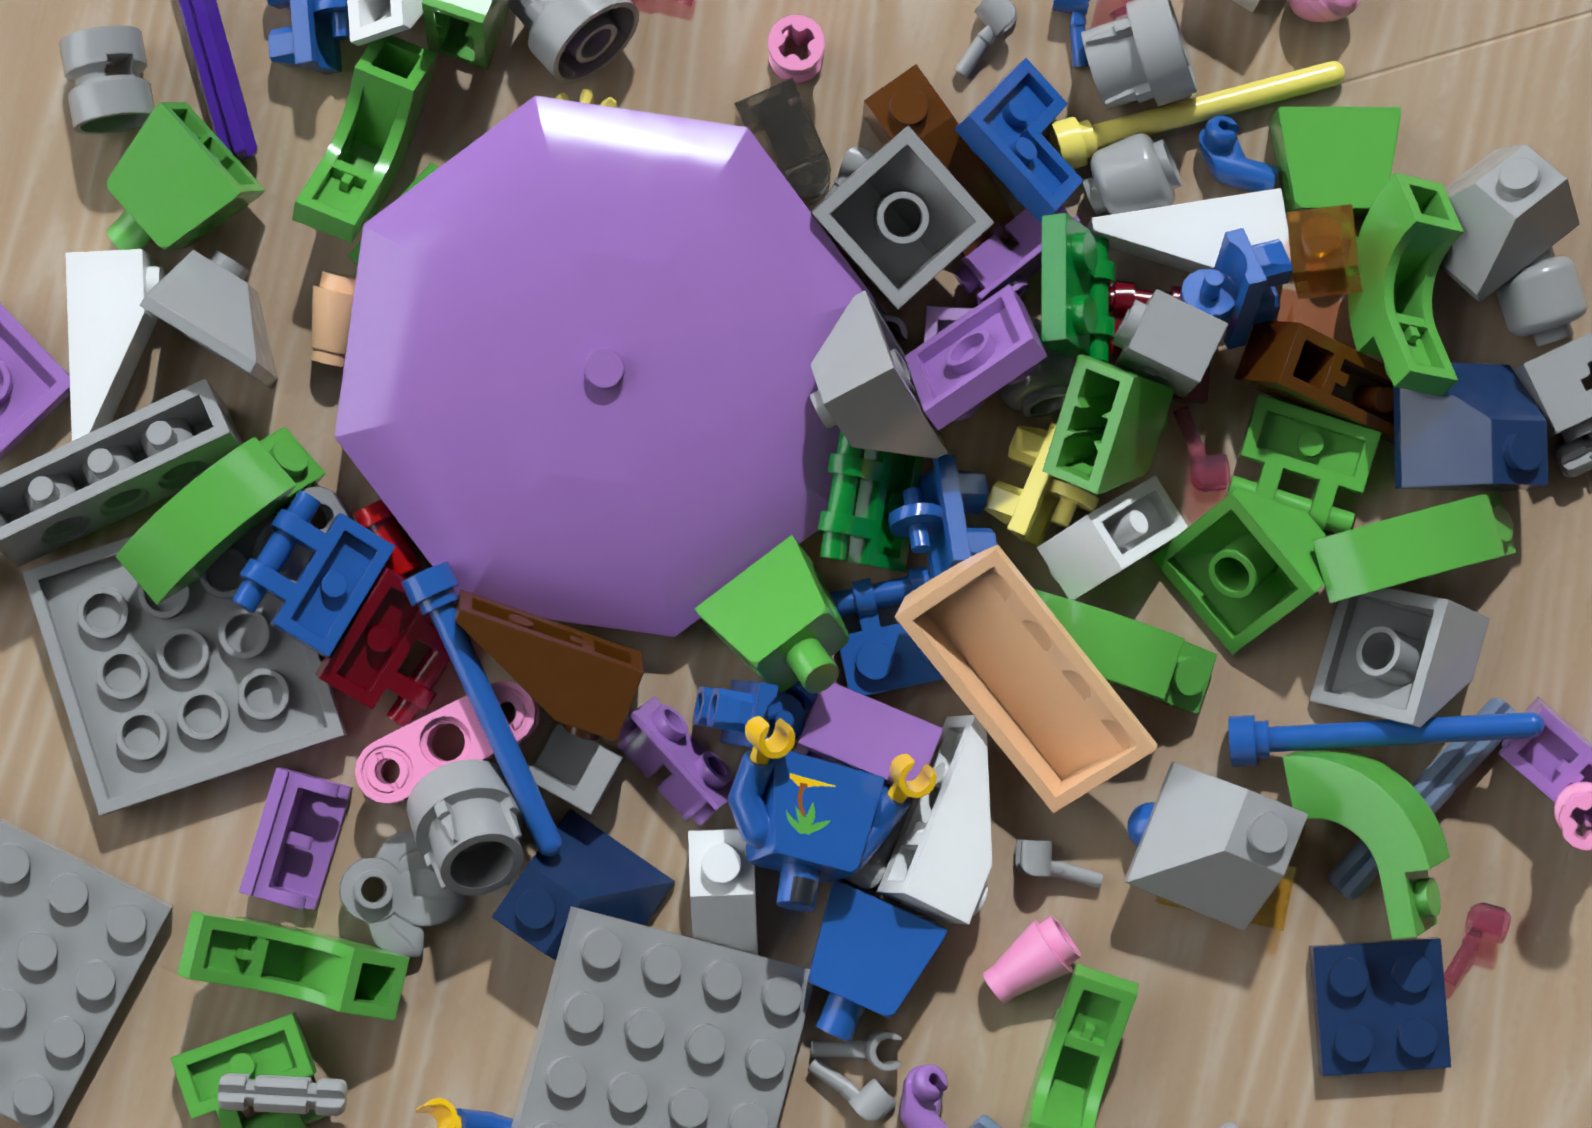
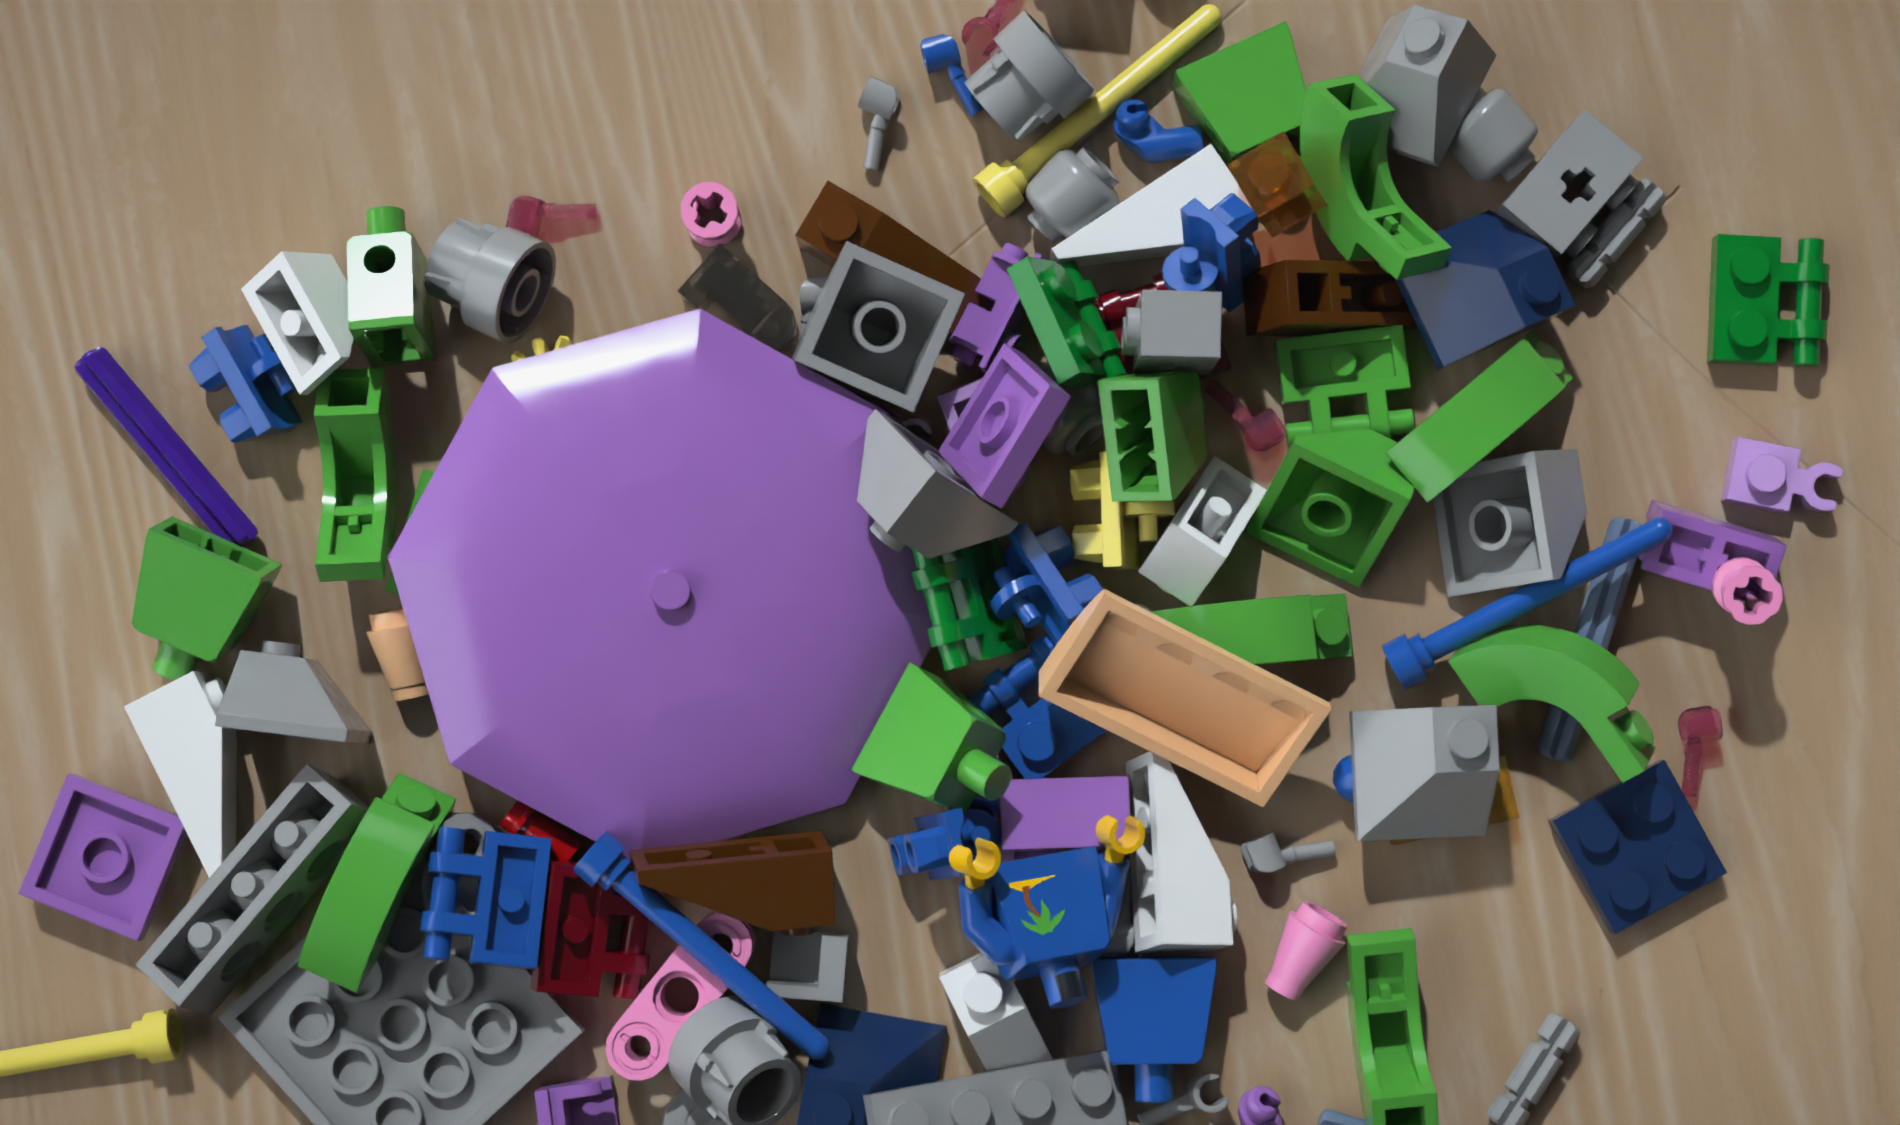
camera: 25 degrees left, 0 degrees up
(107, 79) = (89, 528): light grey wheel -> none
(660, 737) = (926, 922): medium lavender hinge -> none
(1009, 140) = (942, 210): blue plate -> none

